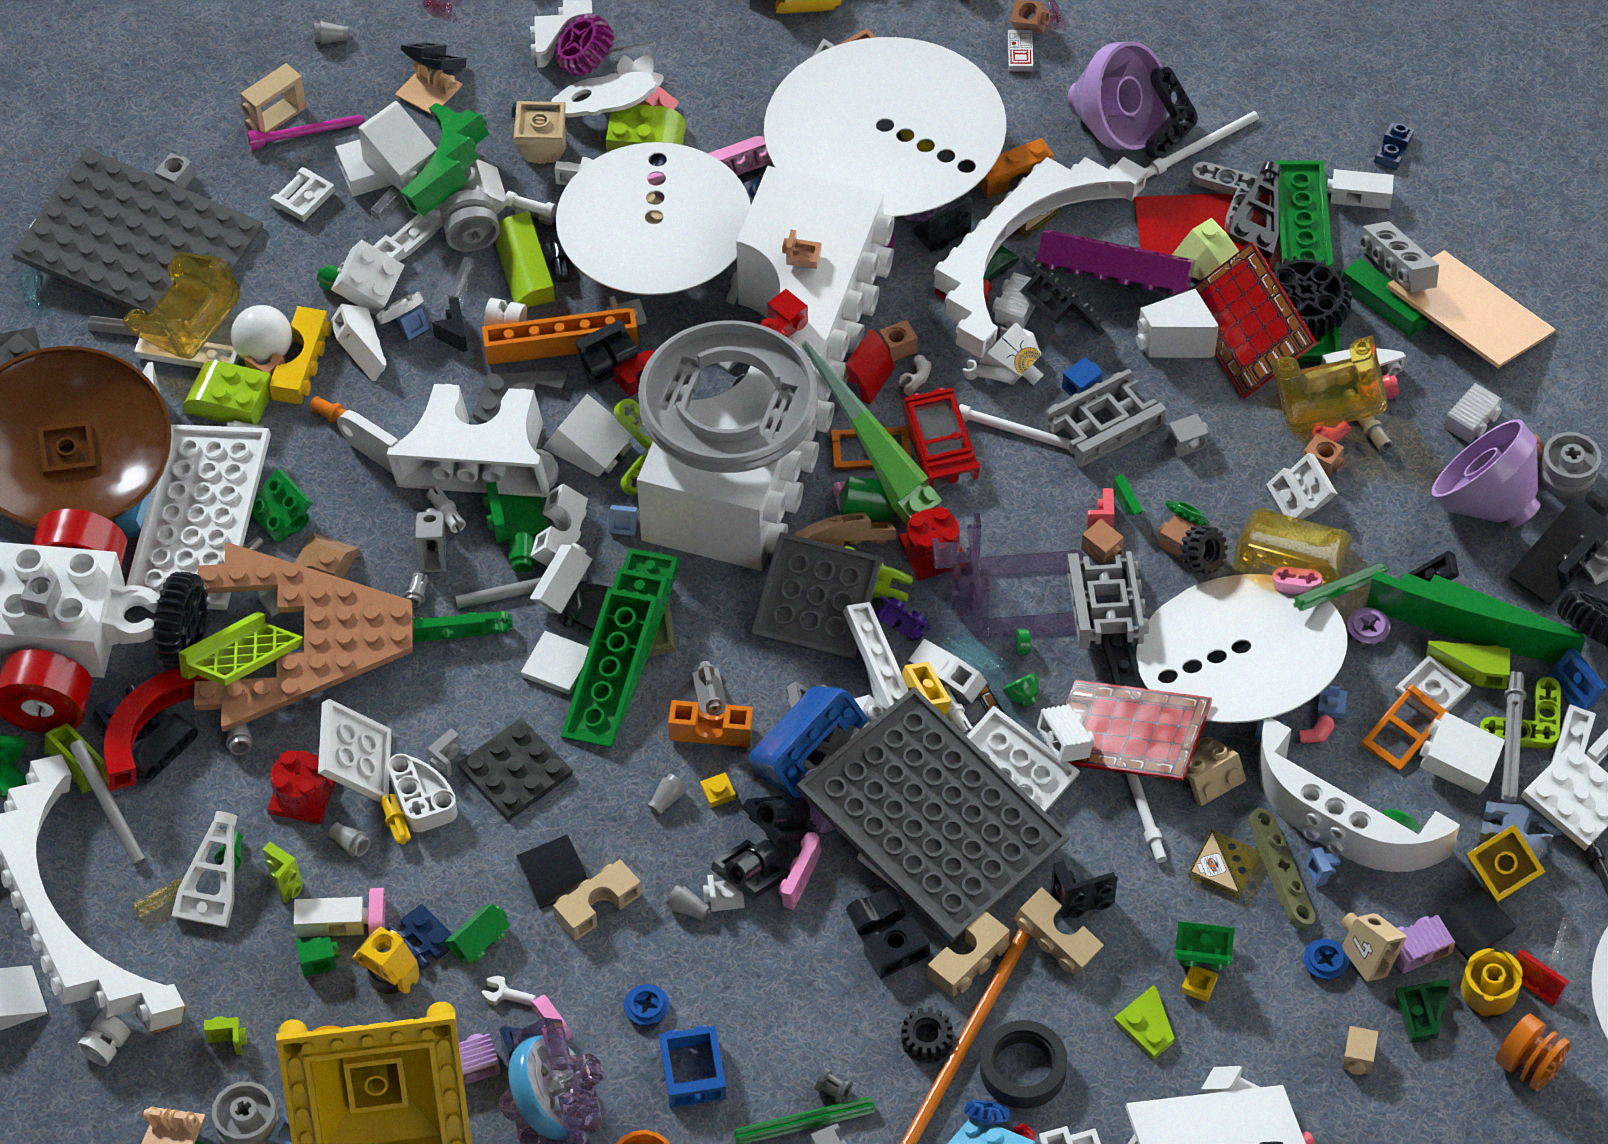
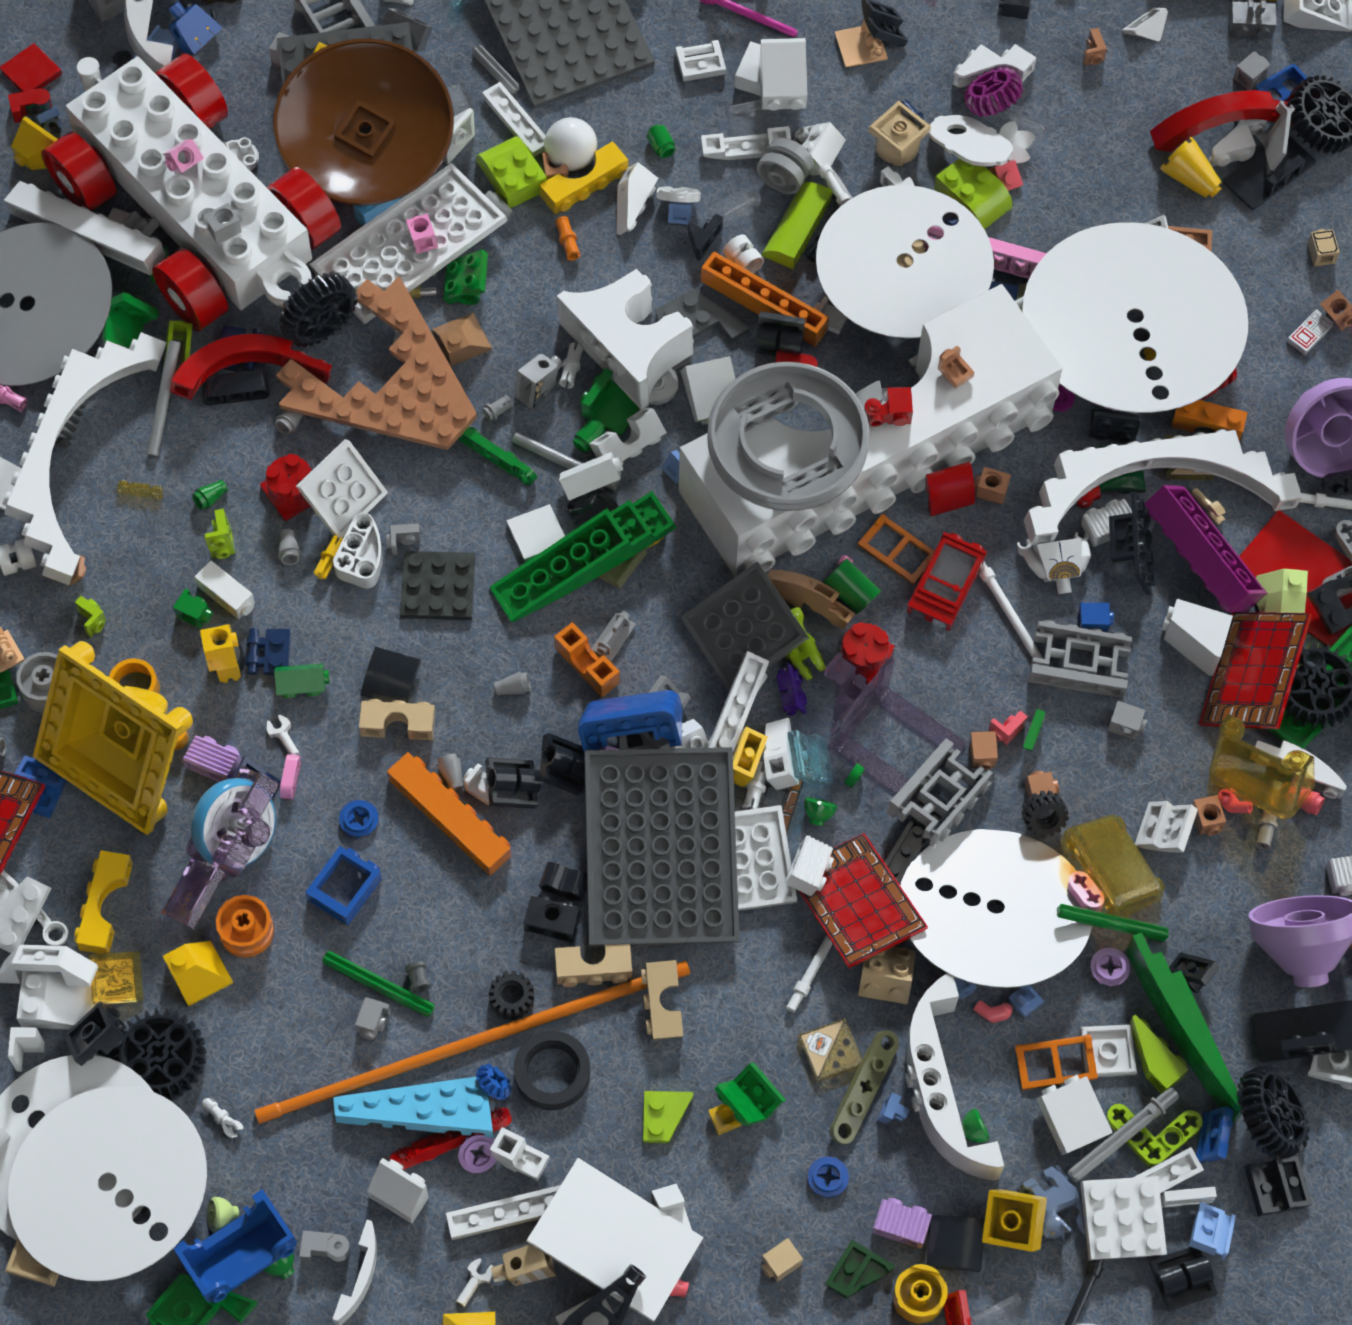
camera: 40 degrees right, 10 degrees up
(191, 308) = (539, 89): clear yellow windscreen -> none
(204, 907) = (156, 516): white plate -> none
(208, 494) = (422, 233): none -> bright pink brick
(243, 638) = (338, 350): lime fence -> none
(366, 437) = (564, 268): white tile -> none
(367, 277) = (676, 155): white brick -> none
(377, 905) = (256, 611): bright pink beam -> none
(447, 167) = (817, 108): green arch -> none
(718, 790) = (550, 709): yellow plate -> none
(721, 936) = (449, 813): none -> orange brick
(800, 871) = (545, 811): bright pink hinge -> none
(898, 473) = (884, 584): bright green plate -> none
(913, 382) = (974, 524): white piece -> none
(1082, 896) = (700, 989): black bracket -> none
(1090, 230) = (1214, 509): none -> tan bar
(1187, 512) = (1062, 768): green gear -> none
(1372, 944) = (863, 1194): tan torso -> none

